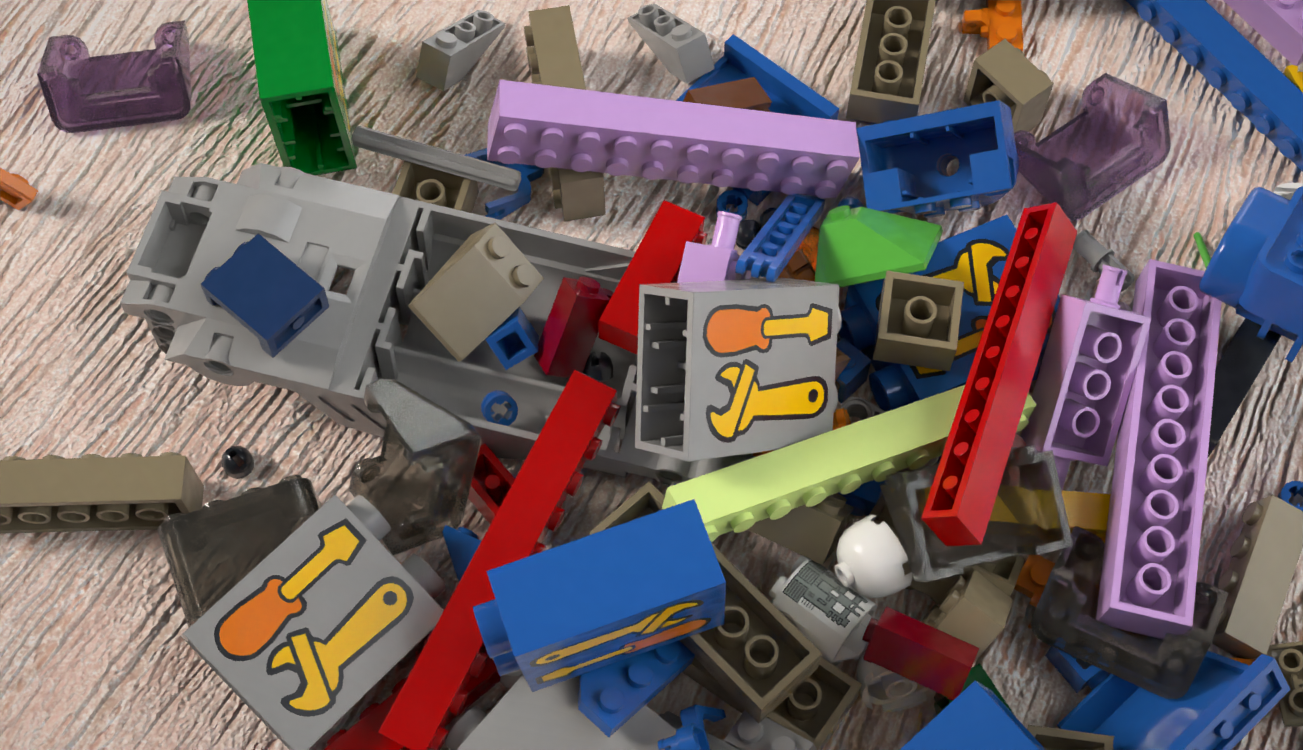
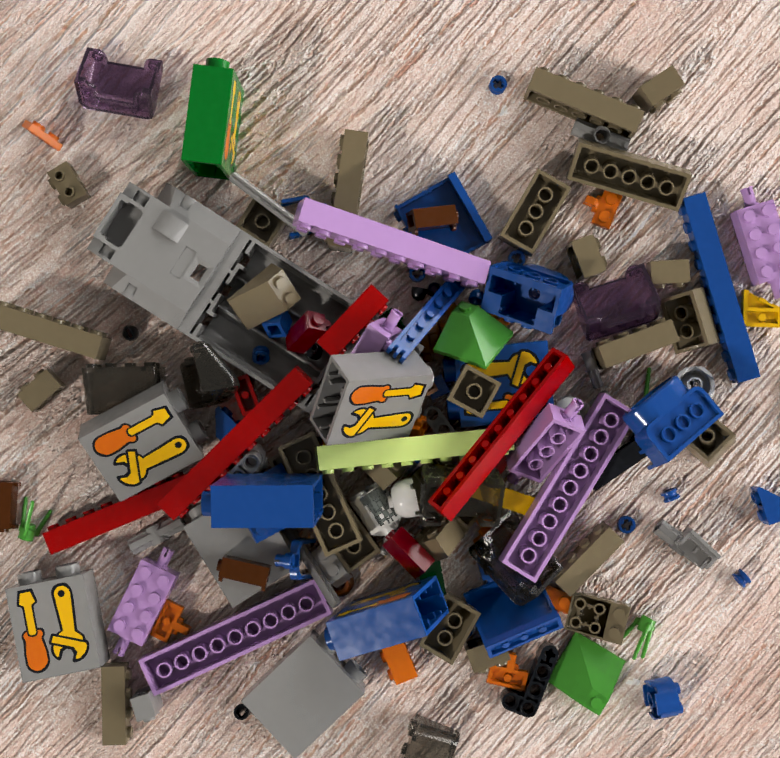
camera: 20 degrees right, 25 degrees up
(61, 250) = (68, 185): none -> dark tan brick
(84, 610) = (41, 389): none -> dark tan brick
(266, 293) = (155, 274): dark blue panel -> none
(456, 49) = (306, 125): light grey slope -> none
(674, 42) = (422, 159): light grey slope -> none
(1156, 189) = (639, 342): none -> dark tan brick
(1159, 71) = (669, 273): none -> dark tan brick
(1225, 138) = (691, 319): none -> dark tan slope

